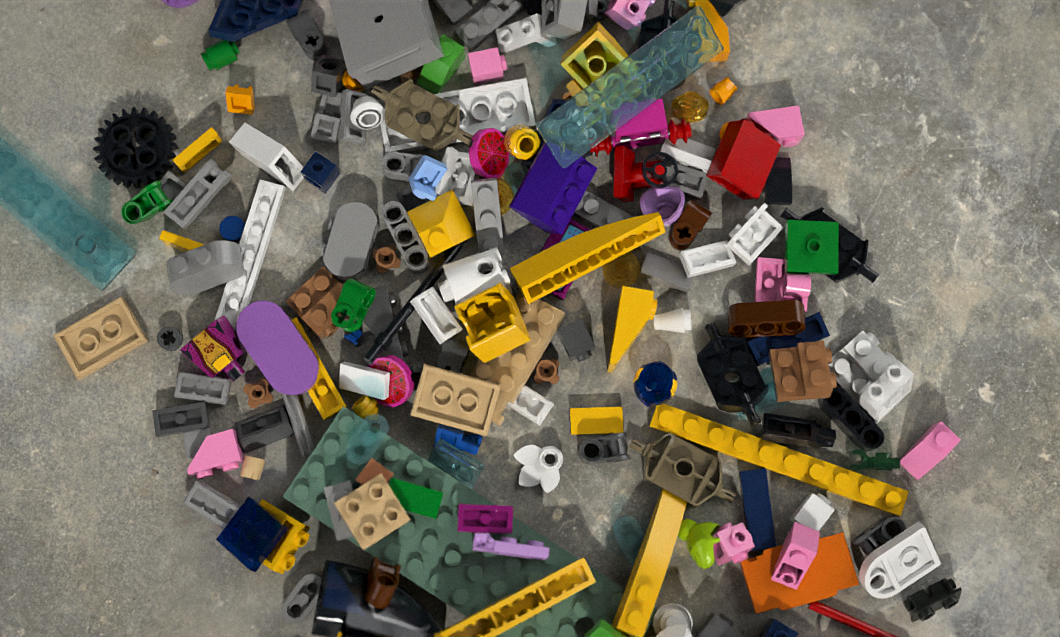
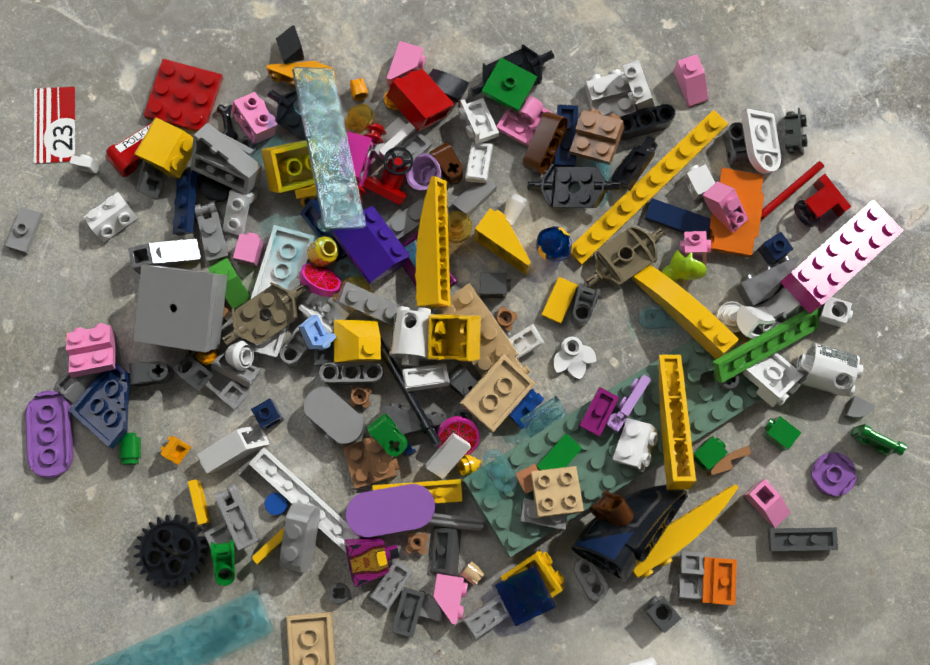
camera: 65 degrees left, 0 degrees up
(468, 577) = (636, 444): none -> white bracket
(881, 461) = (684, 117): clear green plate -> none

